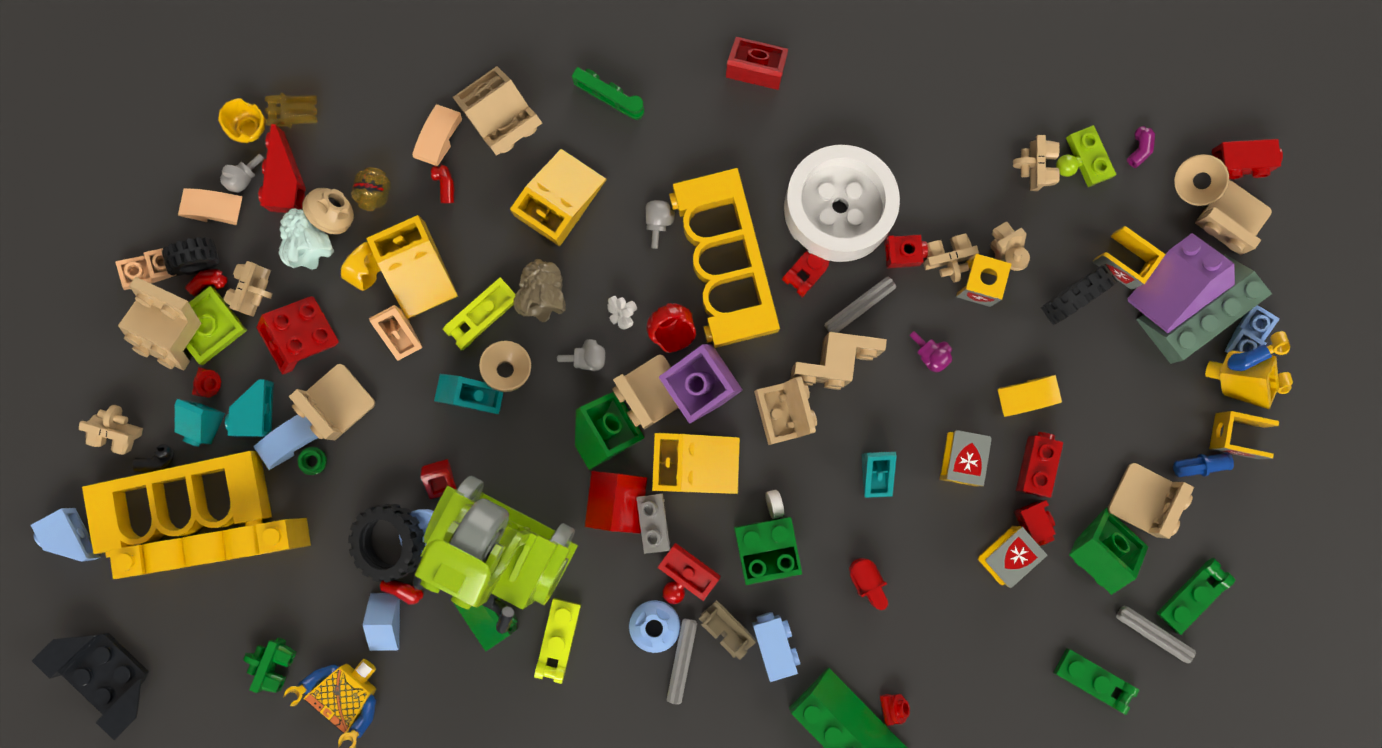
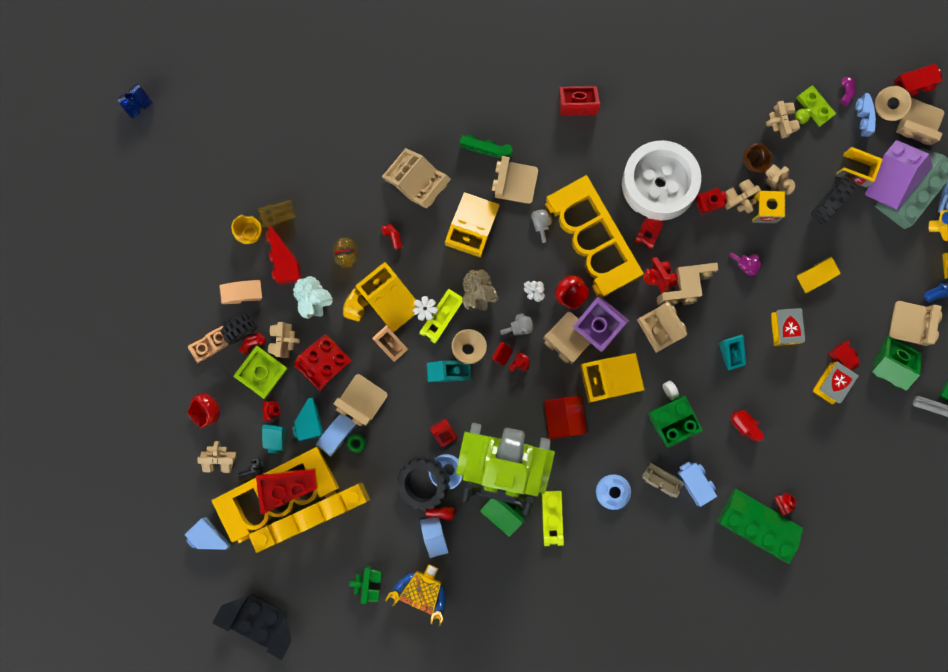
camera: 15 degrees left, 0 degrees up
(111, 357) = (203, 410): none -> red hair
(159, 324) = (233, 379): tan bracket -> none
(186, 495) = (282, 487): none -> red wing
(238, 177) = (253, 268): light grey piece -> none
(326, 215) = (320, 276): tan piece -> none
(435, 135) = (378, 205): light nougat slope -> none
(458, 296) = (421, 308): none -> white plant
(551, 389) = (502, 354): none -> red slope
(570, 407) = (521, 362): none -> red plate
(604, 430) = (546, 371): green slope -> none
(635, 151) = (515, 181): none -> tan bracket
(653, 523) = (595, 424): light grey hinge -> none
(681, 661) = (638, 511): light grey axle -> none
(688, 574) = (626, 451): red plate -> none
(803, 337) = (660, 275): none -> red hips
(860, 305) = (691, 244): light grey axle -> none
(987, 207) = (757, 158): none -> reddish brown hair
(1040, 465) = (837, 318): red brick -> none
(1095, 680) = (910, 450): green plate -> none
(1160, 181) = (866, 110): none -> light blue slope

